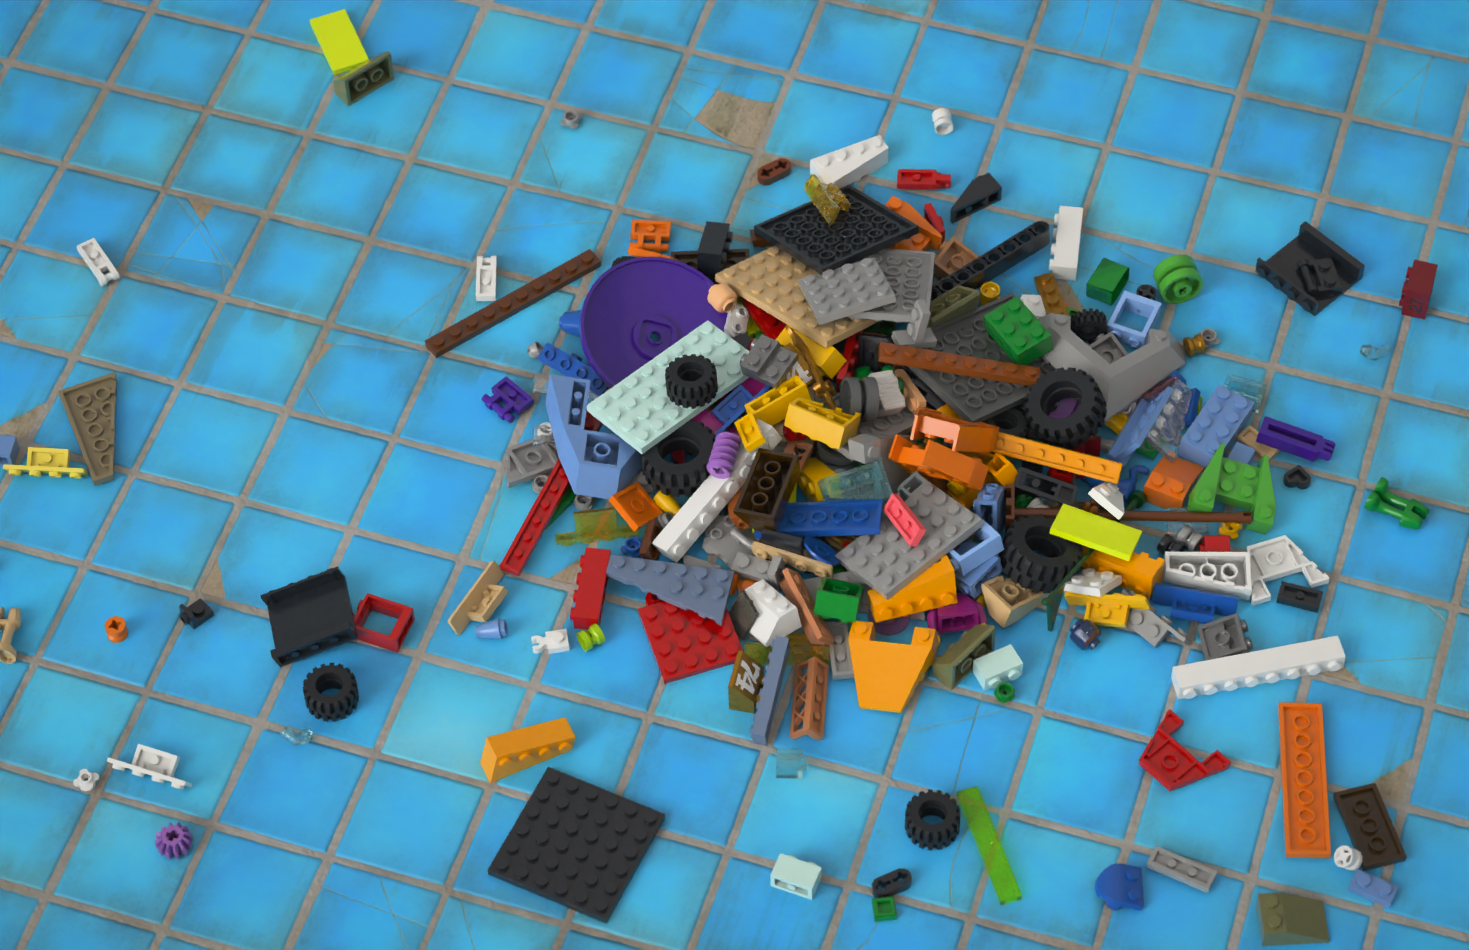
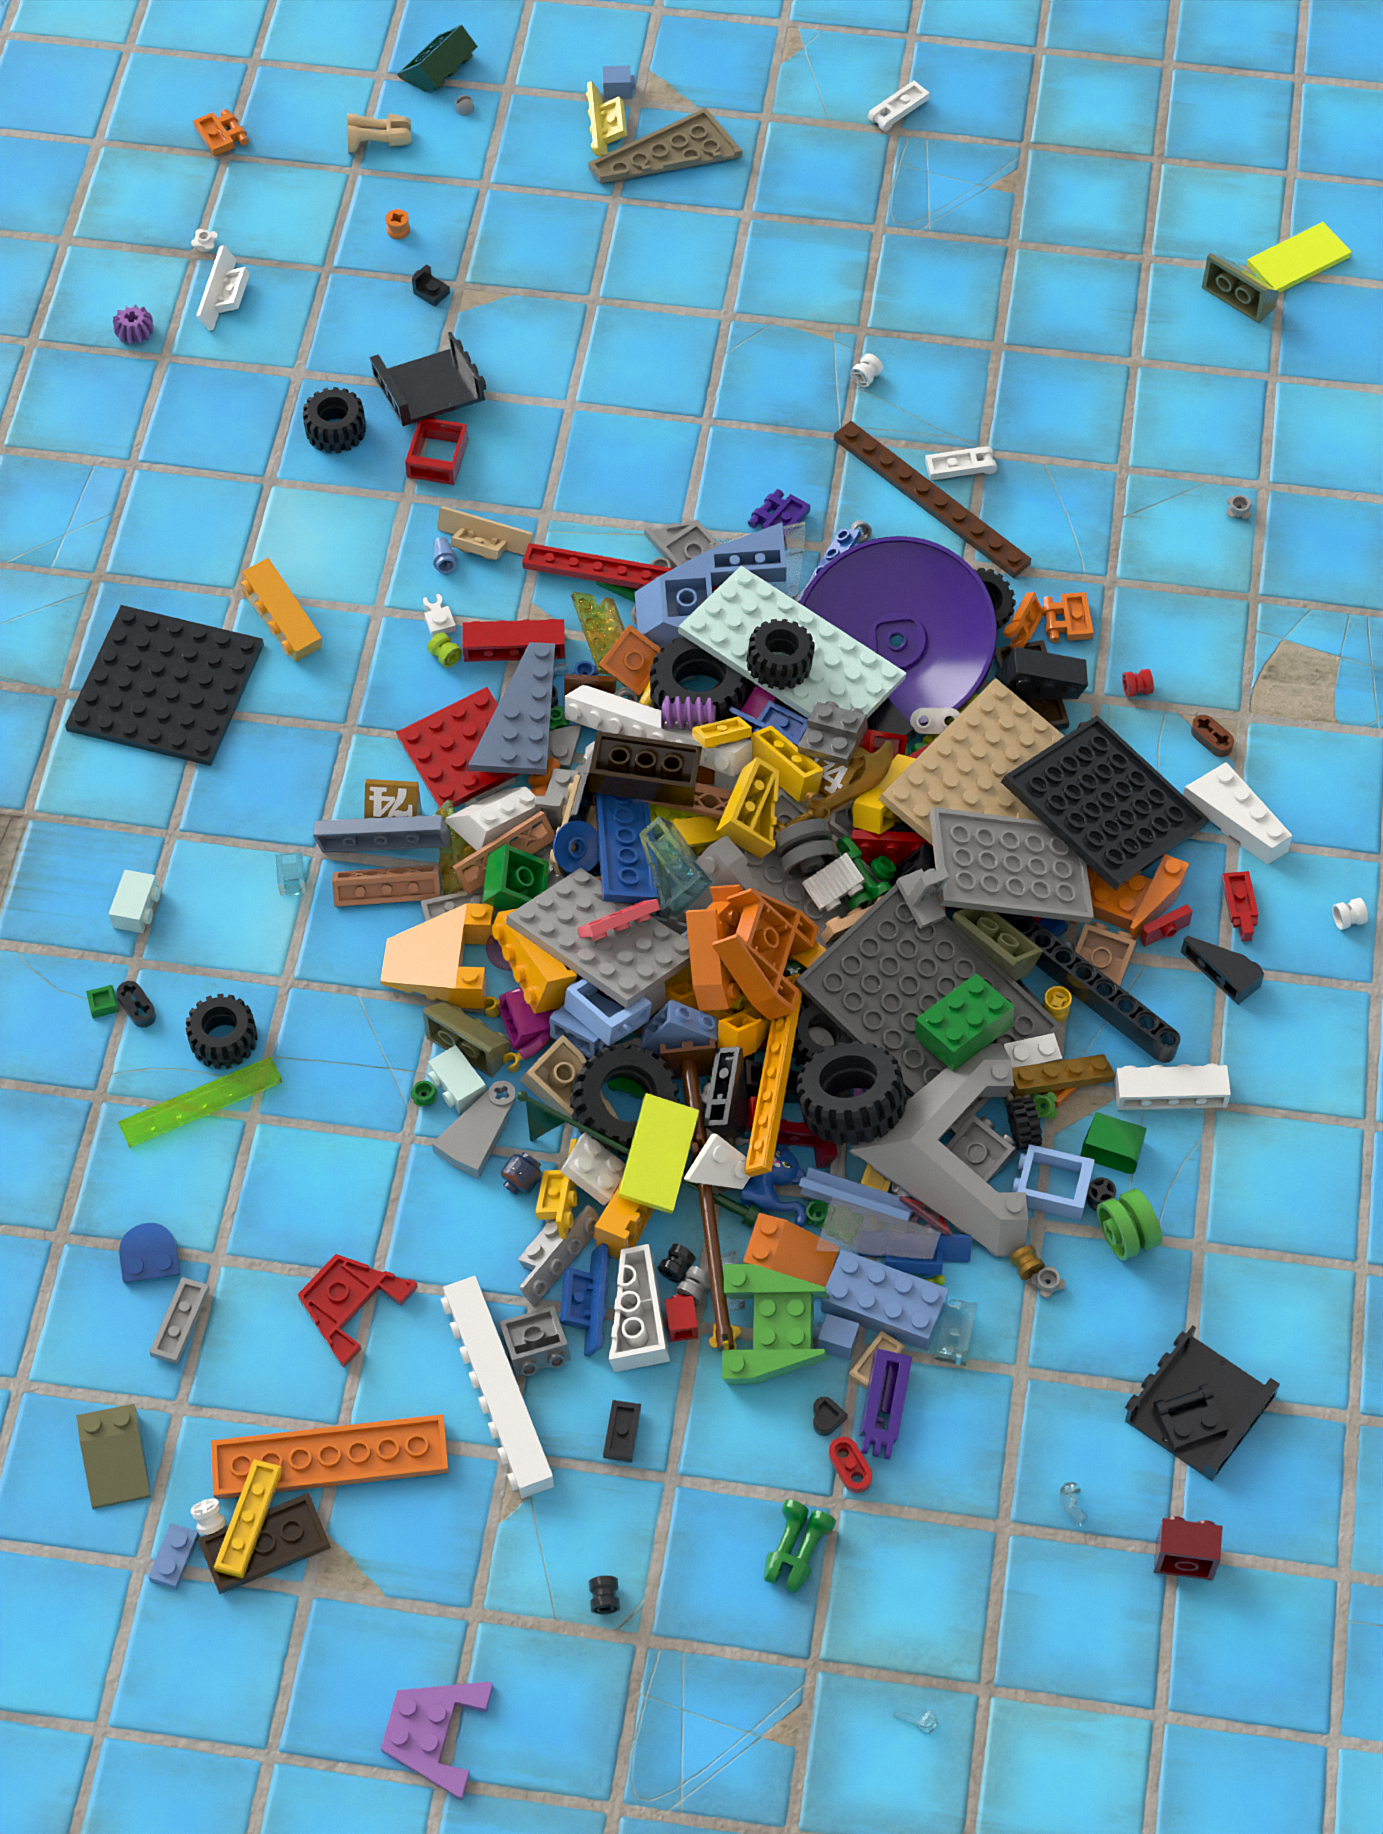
camera: 80 degrees right, 5 degrees up
(297, 738) = (278, 407): clear light blue arm -> none
(375, 320) = (864, 373): none -> white wheel
(721, 204) = (1137, 683): none -> red wheel
(722, 298) = (956, 689): light nougat head -> none
(826, 198) = (1161, 792): clear yellow bracket -> none
(846, 290) = (972, 806): light grey plate -> none
(957, 364) = (892, 957): dark orange plate -> none
(1045, 662) = (476, 1132): none -> light grey piece
(1140, 454) = (812, 1209): none -> green plate
(1276, 560) = (678, 1395): white wing -> none
(1336, 469) = (850, 1466): none -> red plate
(1353, 830) = (248, 1518): none -> yellow tile
(1424, 620) = (604, 1595): none -> black wheel

